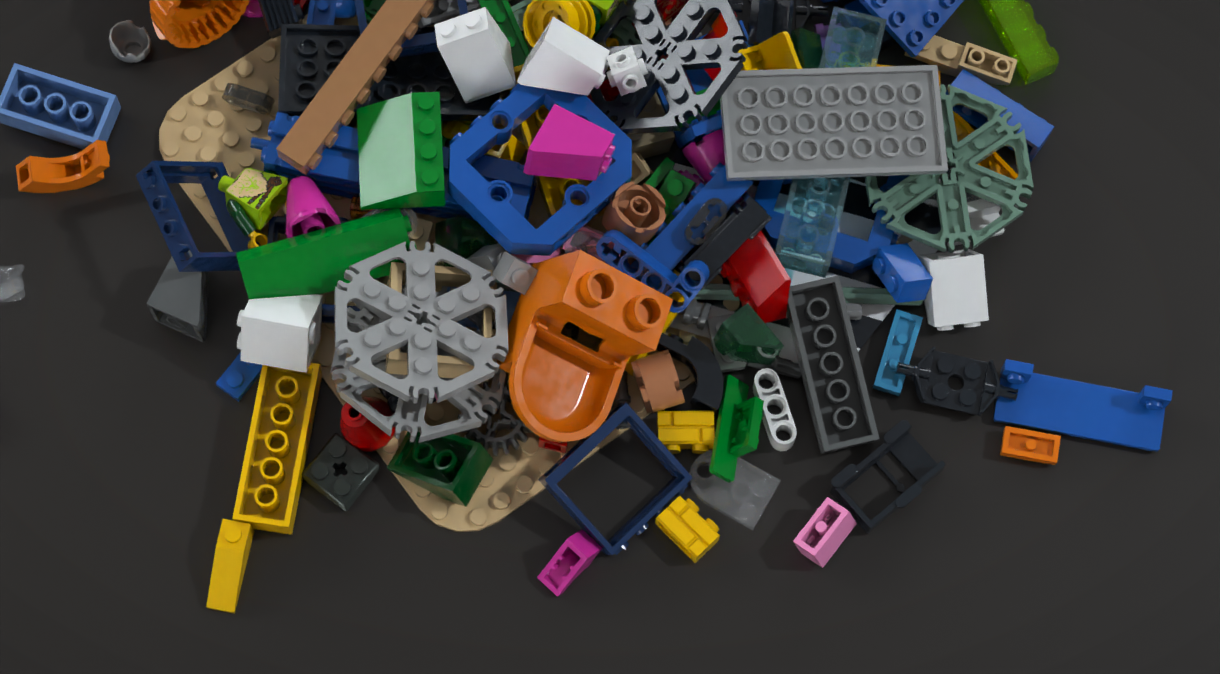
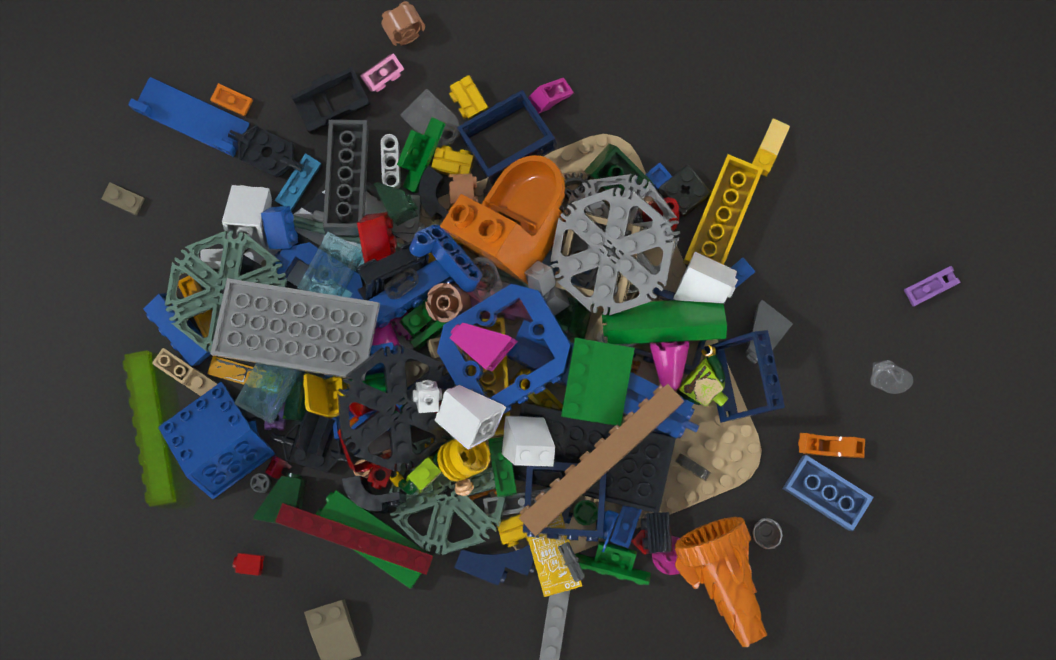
camera: 155 degrees left, 10 degrees up
(383, 484) = (658, 175): none -> blue plate
(815, 610) = (402, 24): none -> nougat brick
(1136, 274) = (123, 198): none -> dark tan plate

